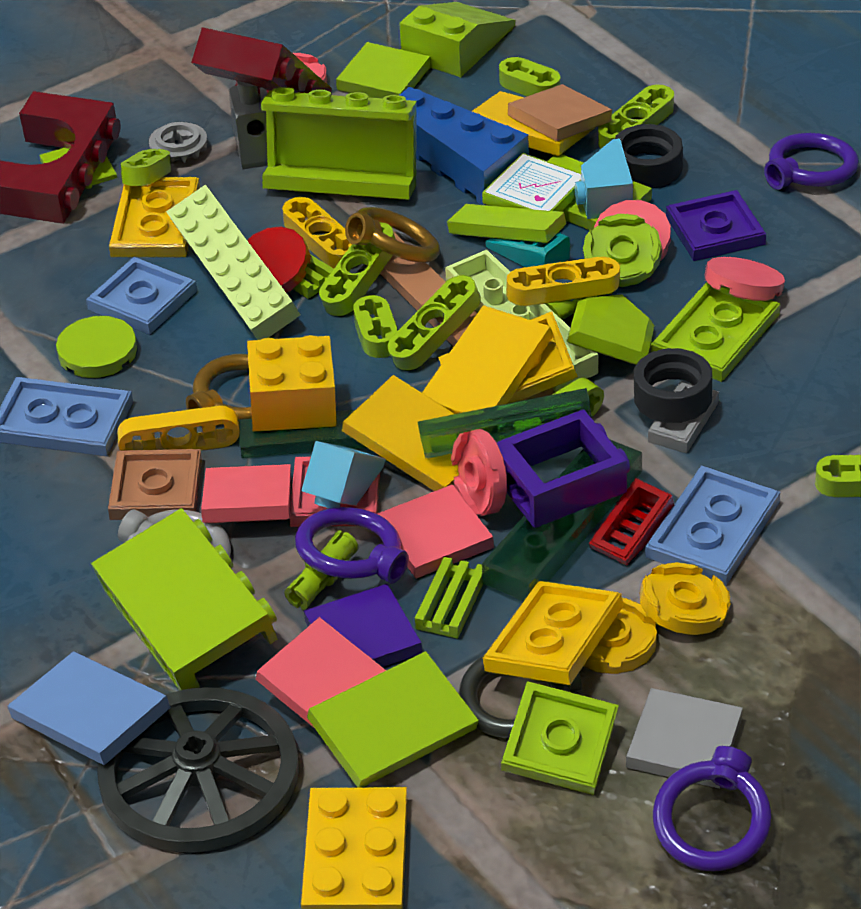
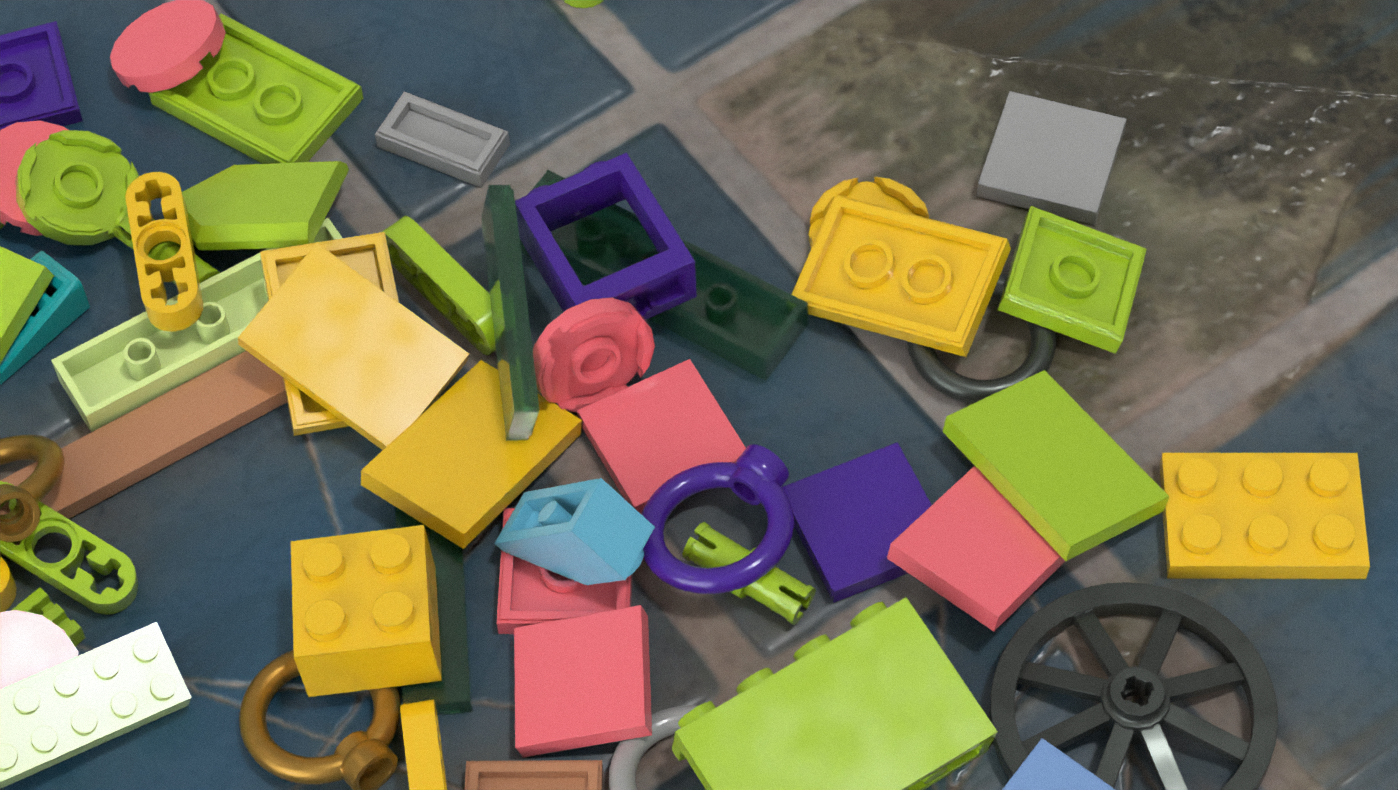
camera: 90 degrees left, 15 degrees up
(369, 327) = (187, 528): lime beam -> none
(415, 342) = (197, 386): lime beam -> none
(432, 597) = (801, 405): lime tile -> none
(637, 495) = (663, 175): red slope -> none
(673, 405) = (407, 91): black tyre -> none
(684, 599) = (815, 144): yellow tile -> none
(713, 523) = (664, 115): medium blue tile -> none
(729, 770) = (1134, 97): dark purple piece -> none

